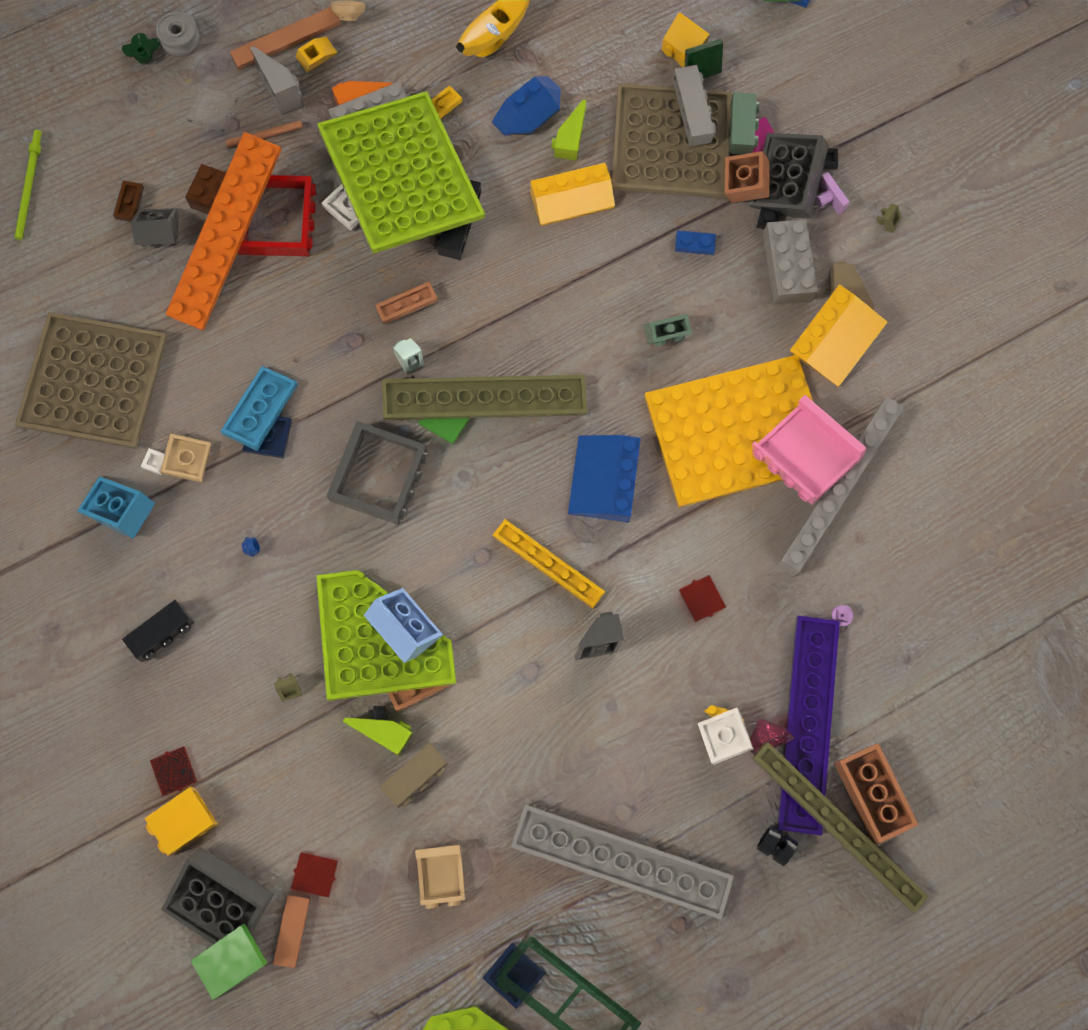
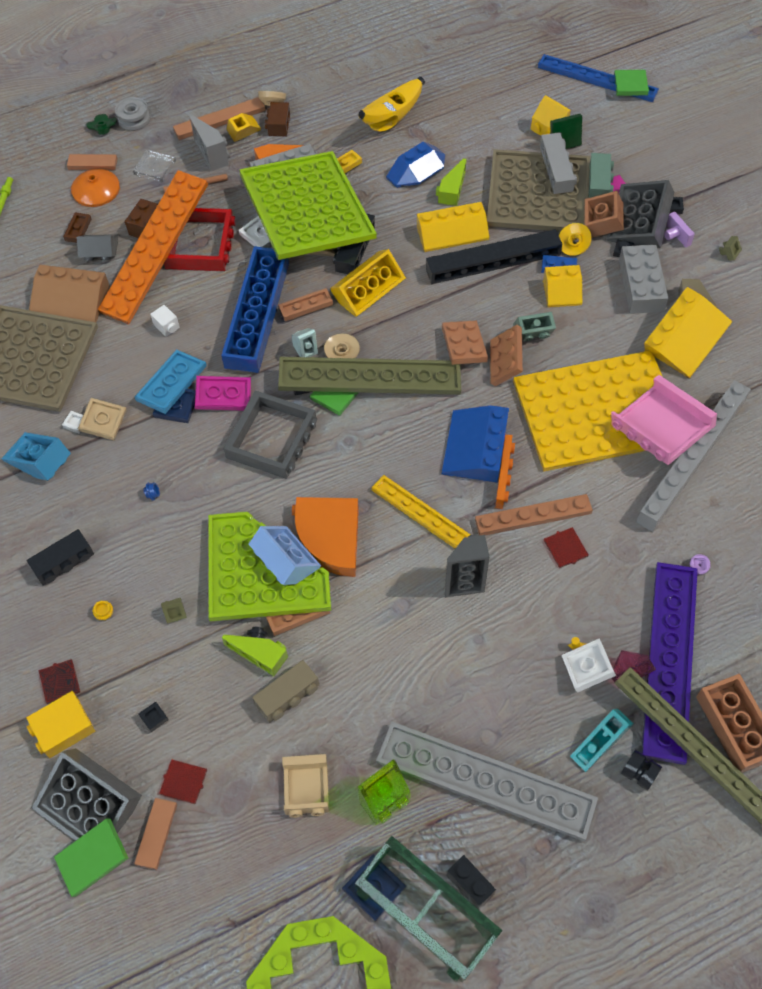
camera: 10 degrees right, 15 degrees down
(128, 294) = (68, 292): none -> medium nougat slope
(135, 105) = (92, 161): none -> nougat tile
(147, 149) = (95, 187): none -> orange dish
(211, 690) = (102, 610): none -> yellow plate
(245, 329) = (165, 320): none -> white brick
(277, 808) = (153, 716): none -> black plate
(320, 421) = (222, 393): none -> dark pink tile
(349, 315) = (255, 311): none -> blue brick
(358, 40) = (278, 119): none -> reddish brown brick
(448, 591) = (329, 531): none -> orange brick
(451, 352) = (339, 343): none -> tan dish
(477, 272) = (368, 282): none -> yellow slope
(521, 886) = (384, 793): none -> clear neon green slope
(589, 350) = (464, 342): none -> nougat plate
(609, 968) = (471, 882): none -> black brick
(620, 233) = (493, 256): none -> black brick
(636, 368) = (506, 355): none -> nougat plate
(636, 520) = (504, 478): none -> orange plate
(667, 561) = (533, 515): none -> nougat plate
(699, 273) = (563, 286): none -> yellow slope
(706, 202) = (571, 233): none -> yellow dish
(738, 813) = (601, 739): none -> teal slope

